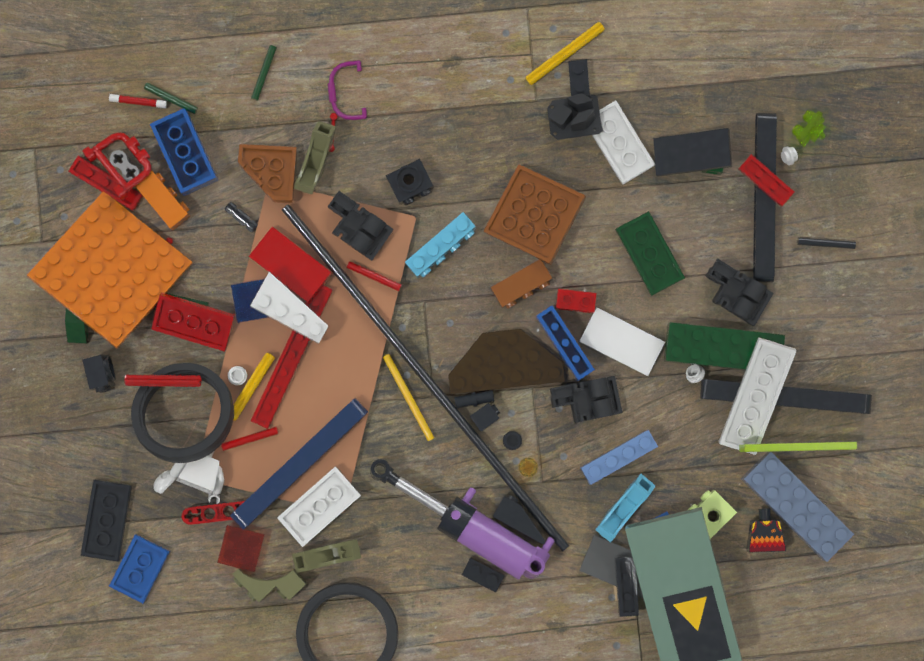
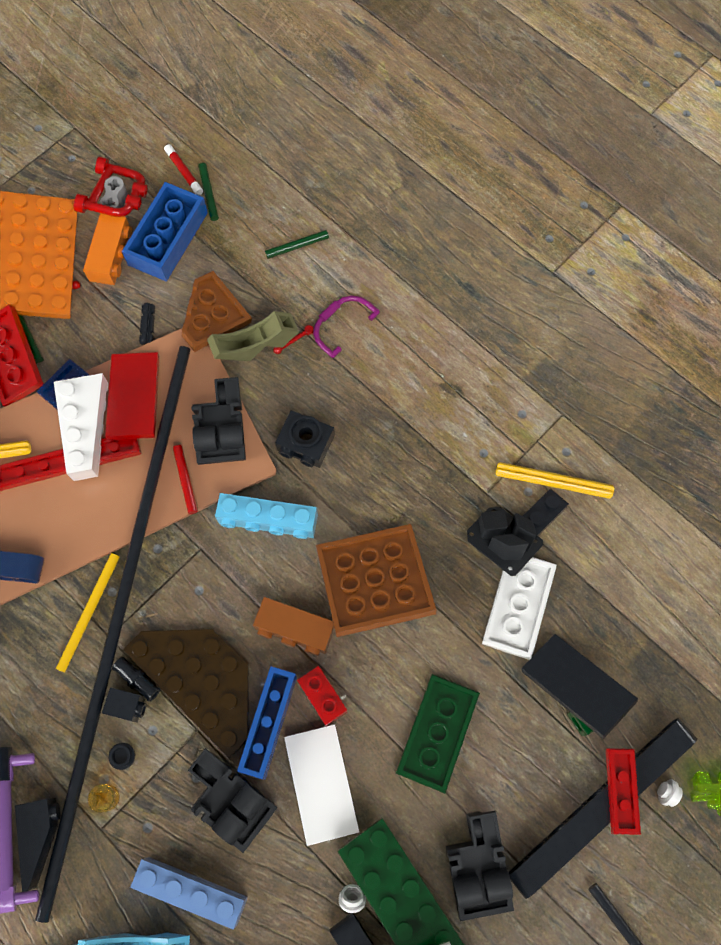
camera: 45 degrees right, 15 degrees down
(102, 181) = (85, 182): red tile -> none

